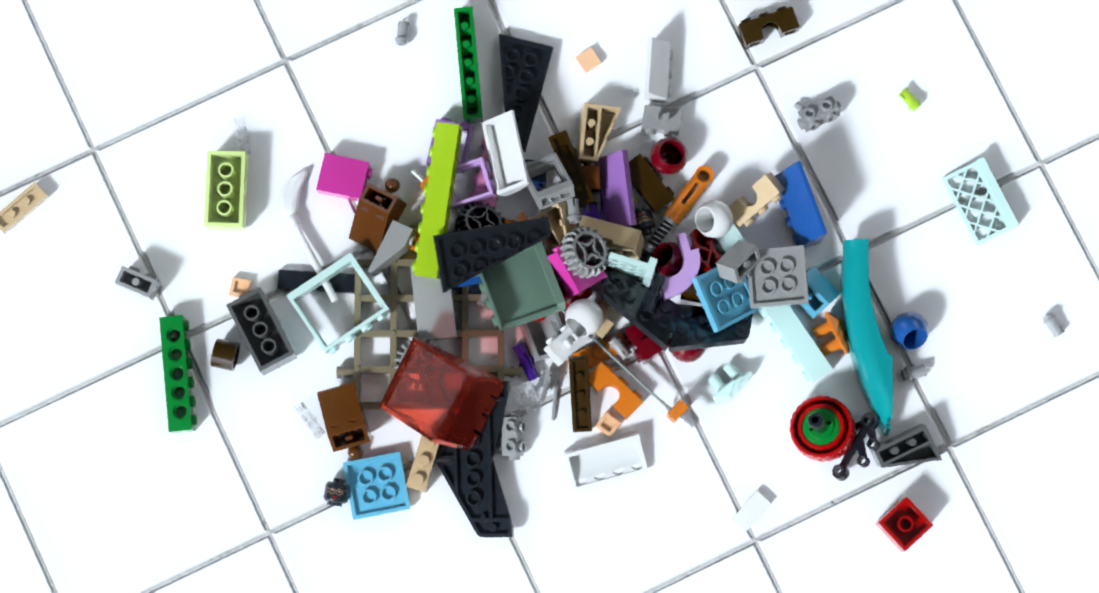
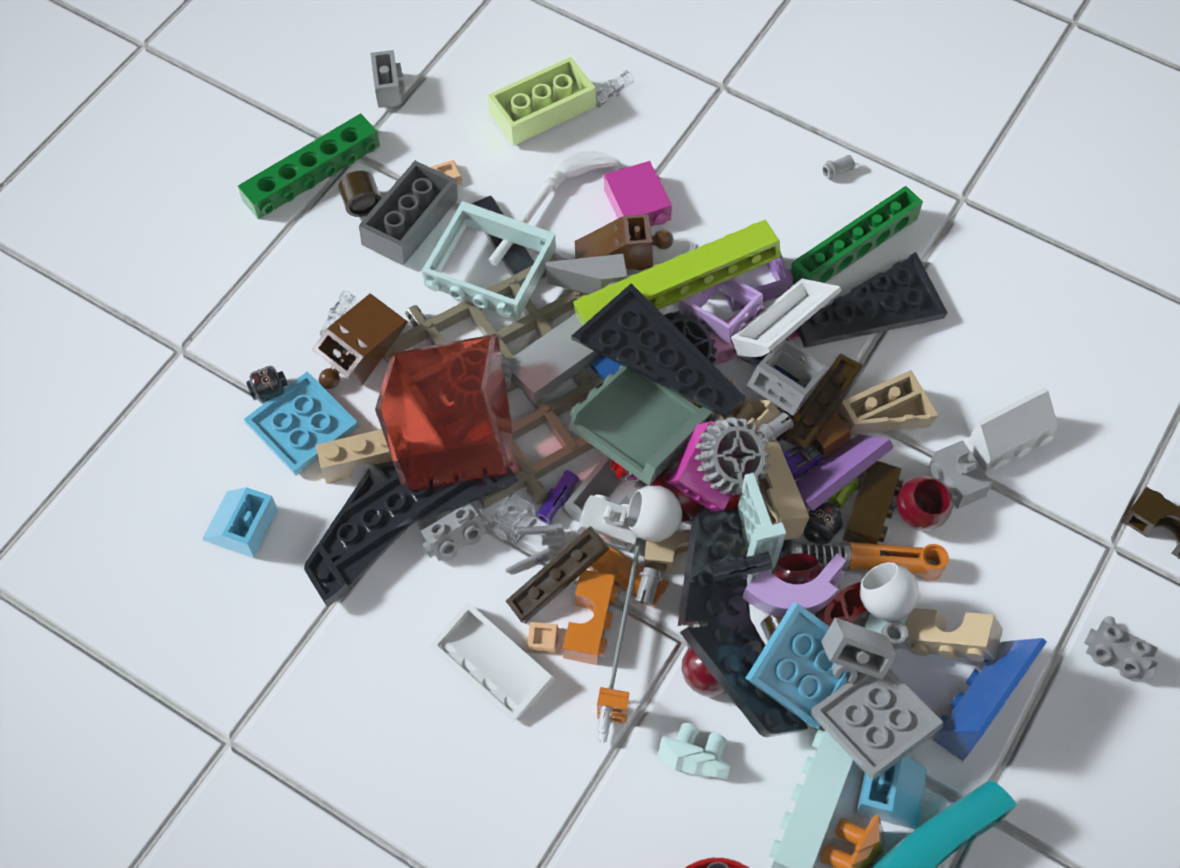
camera: 55 degrees right, 20 degrees down
(424, 558) = (242, 521): none -> medium azure slope
(588, 60) = (962, 359): light nougat tile -> none
(644, 348) = (664, 616): dark red brick -> none
(740, 227) = (899, 627): none -> light grey axle

